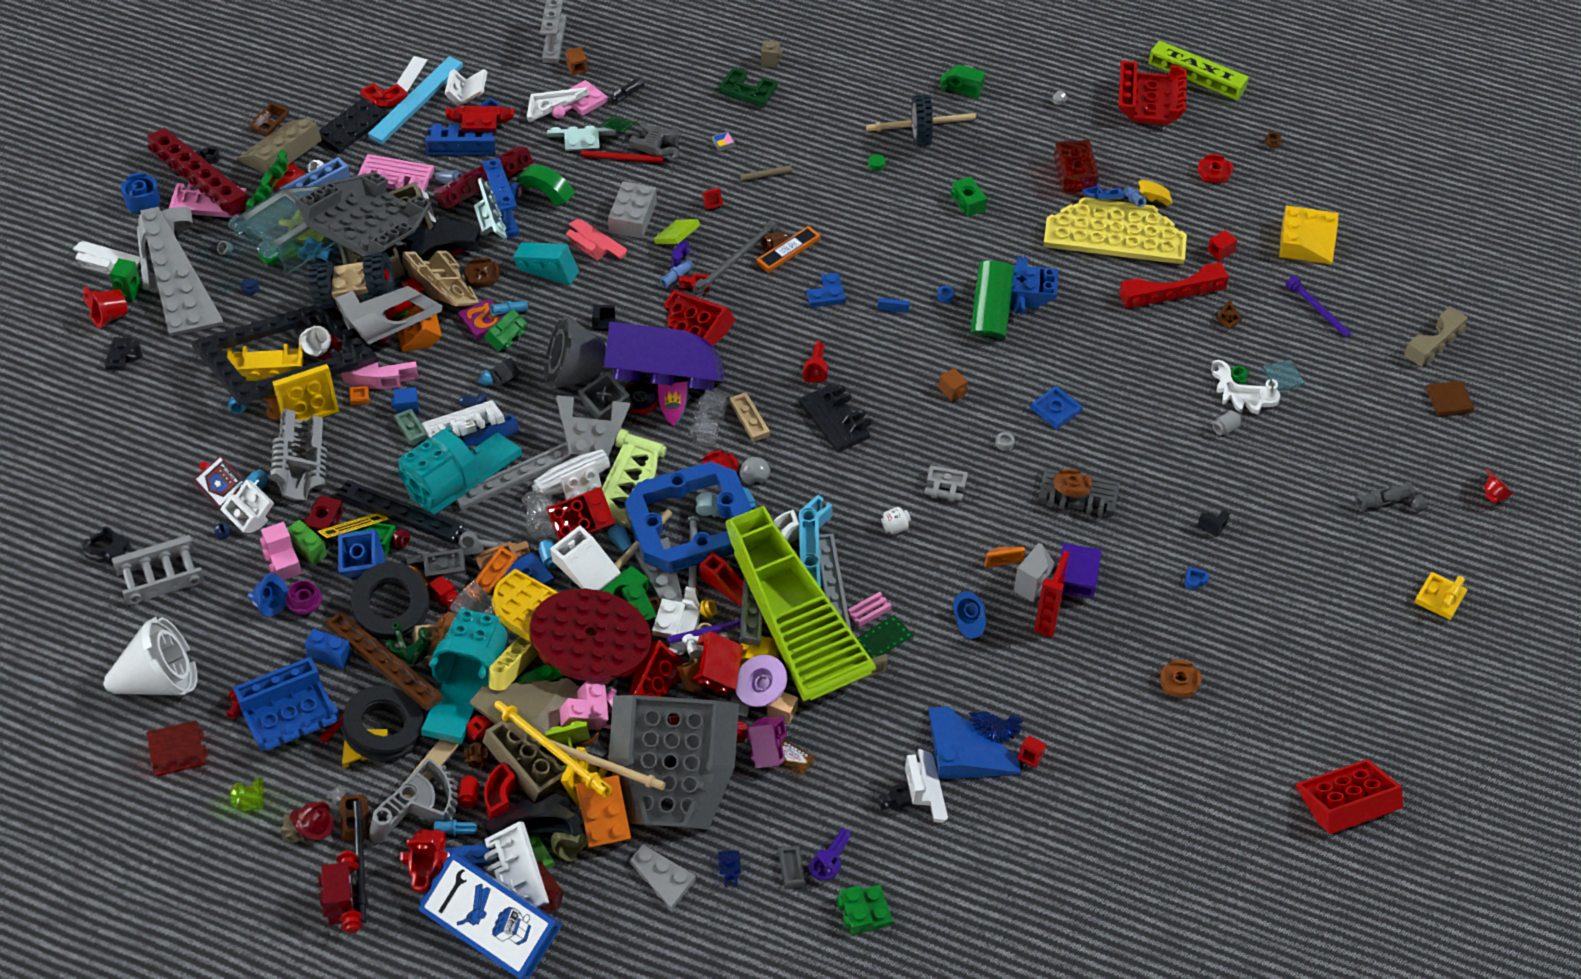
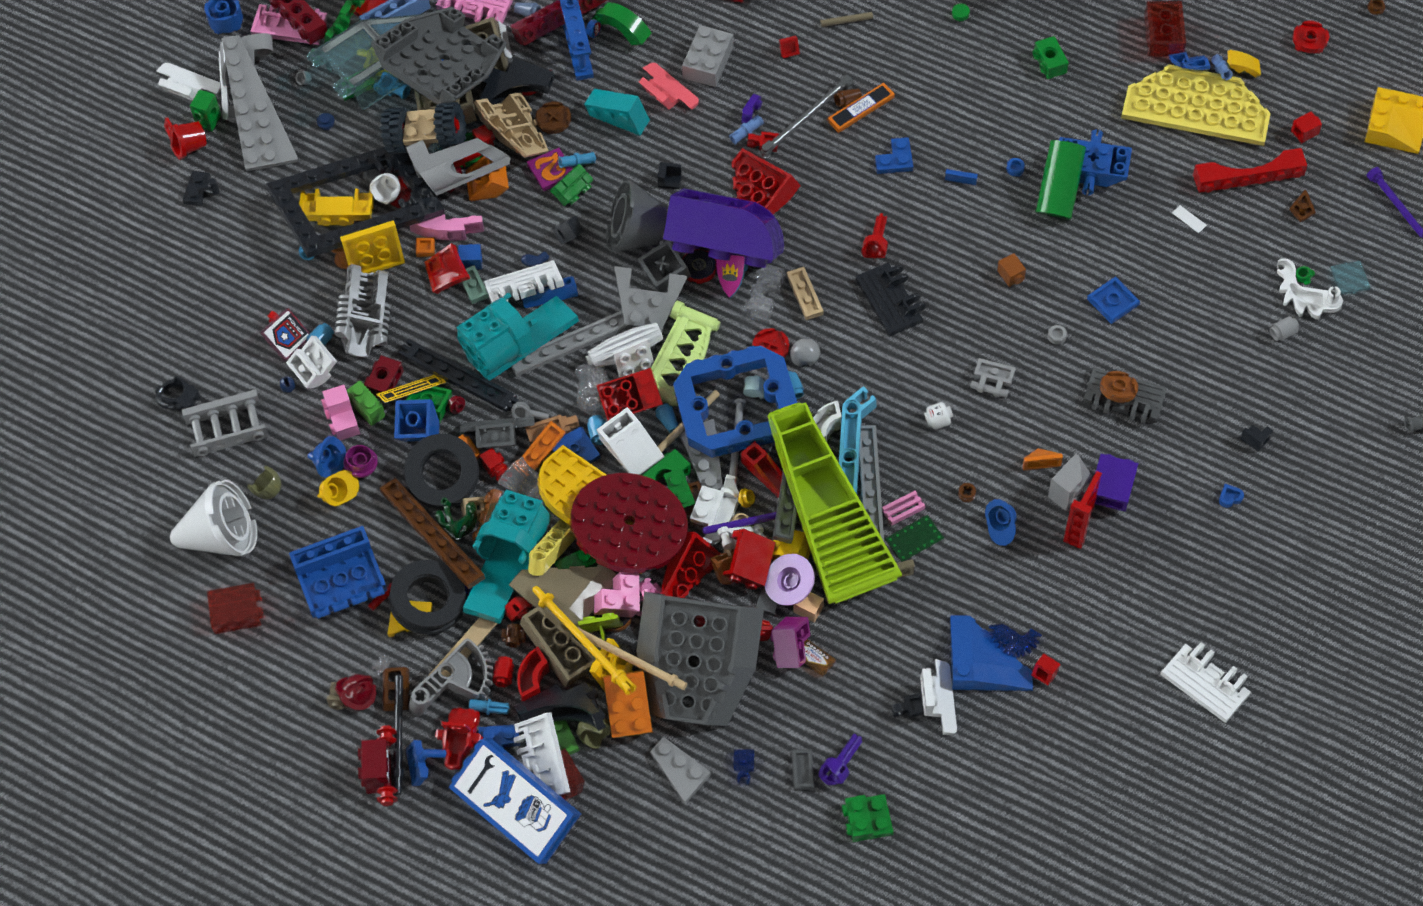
camera: 10 degrees right, 10 degrees up
(205, 626) = (267, 484): none -> olive hair
(235, 708) = (290, 572): red arm -> none
(247, 797) = (298, 663): clear neon green helmet -> none
(282, 624) = (339, 488): none -> yellow piece
(328, 648) = (380, 516): blue brick -> none
(381, 887) = (416, 761): none -> blue plate
(382, 413) = (445, 269): none -> red plate
(486, 378) = (549, 236): dark azure hinge -> none
(488, 212) = (562, 52): light aqua bracket -> none
(677, 231) = (750, 83): lime tile -> none
(930, 595) = (969, 487): none -> reddish brown bush
(1120, 332) = (1189, 219): none -> white sticker
(1177, 688) = (1201, 613): dark orange plate -> none
(1194, 755) = (1206, 684): none -> white hinge
(1350, 795) = (1353, 737): red slope -> none

